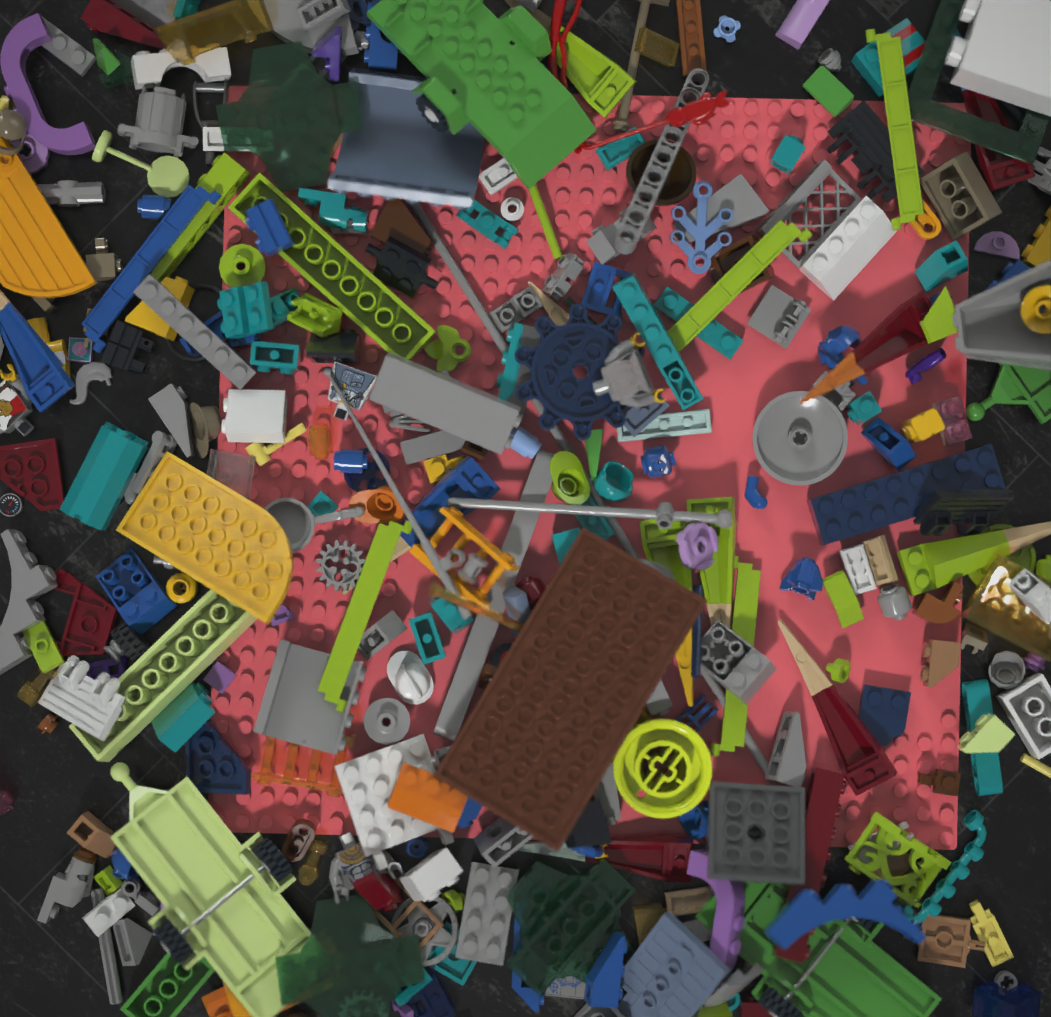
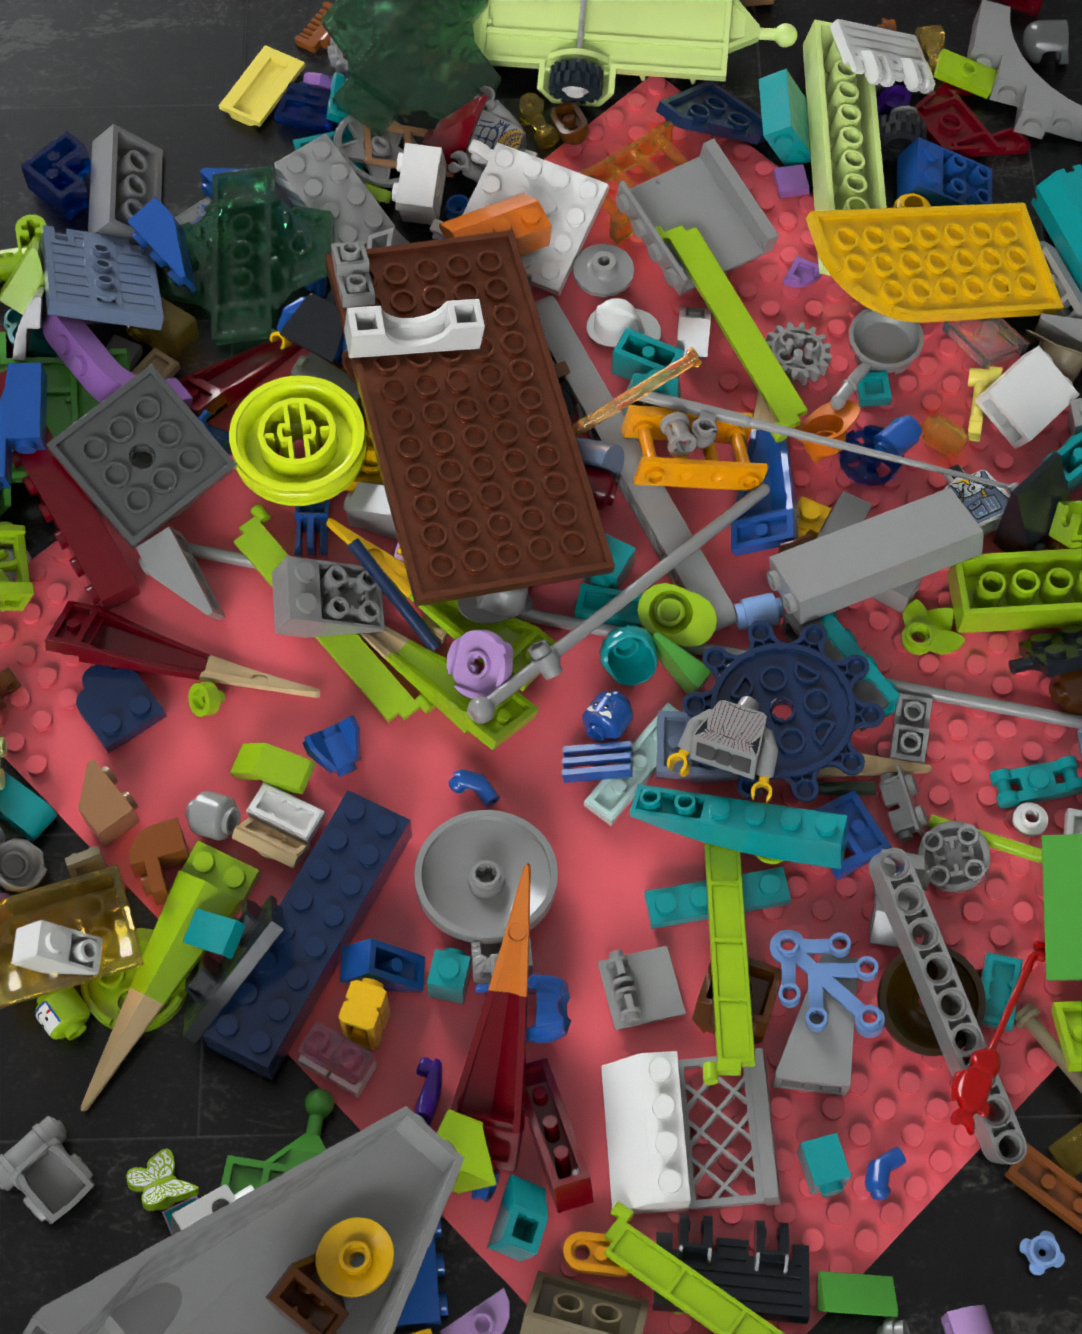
camera: 130 degrees right, 25 degrees down
(557, 823) = (352, 274): none -> light grey slope
(561, 753) = (451, 327): none -> white arch
(570, 227) = (955, 856): none -> light grey tile
(698, 458) = (598, 756): none -> blue tile
(762, 130) = (879, 1171): none -> blue arm
(889, 288) = (555, 1139): none -> dark red slope
(957, 532) = (214, 933): none -> teal tile

